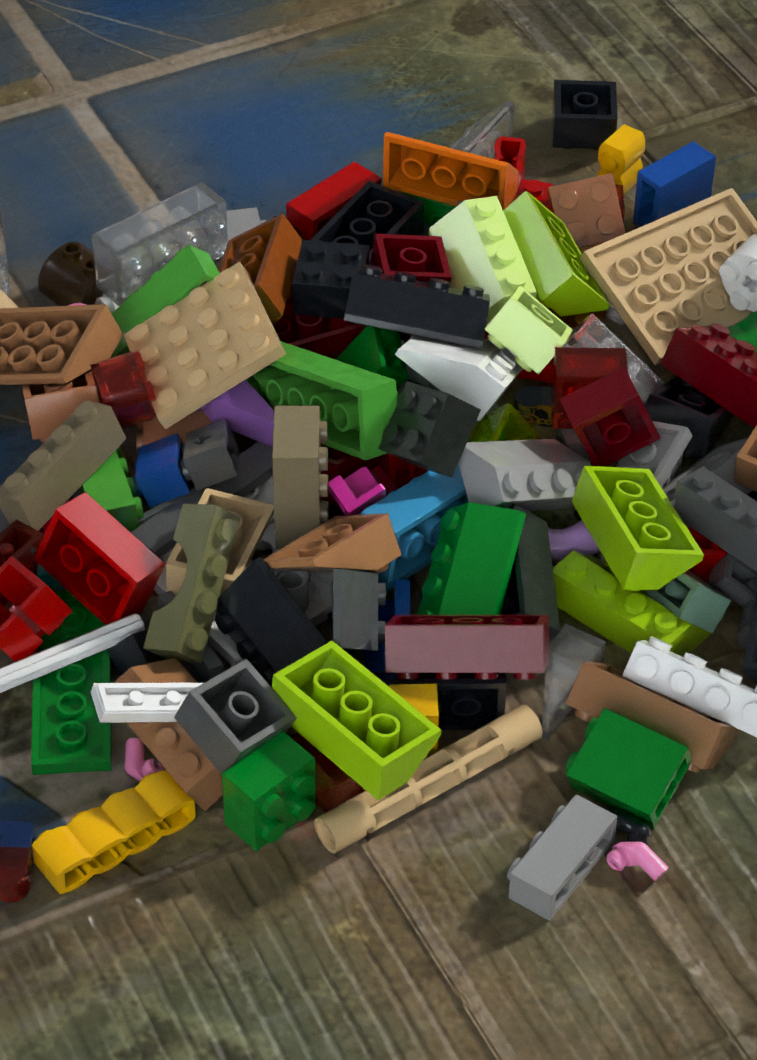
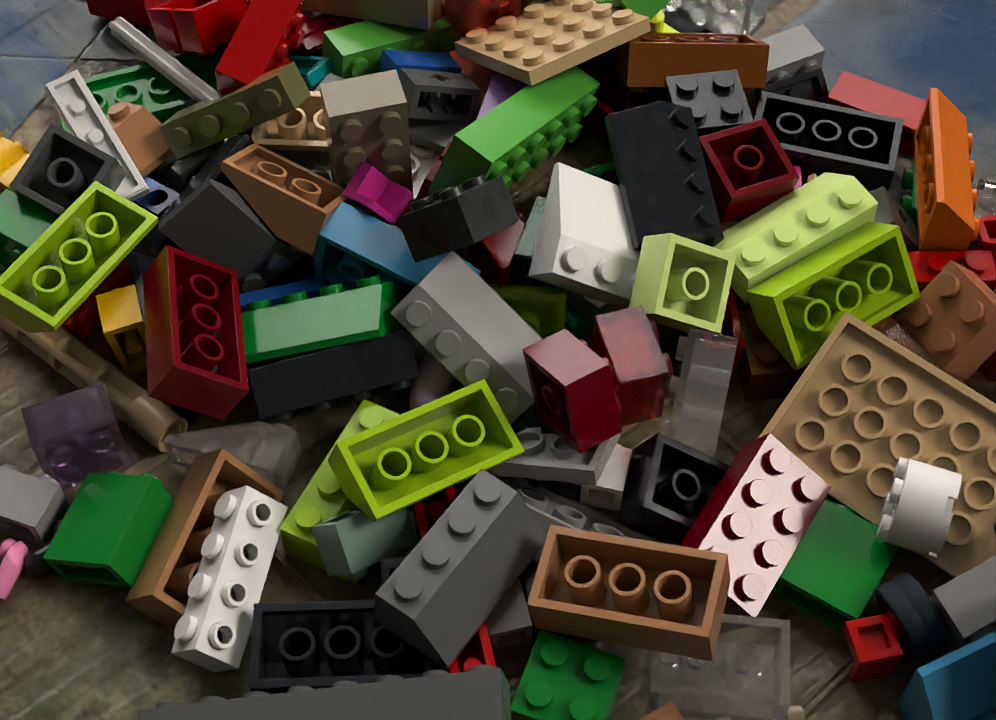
camera: 75 degrees right, 10 degrees up
(527, 775) = (76, 435): none -> clear purple brick

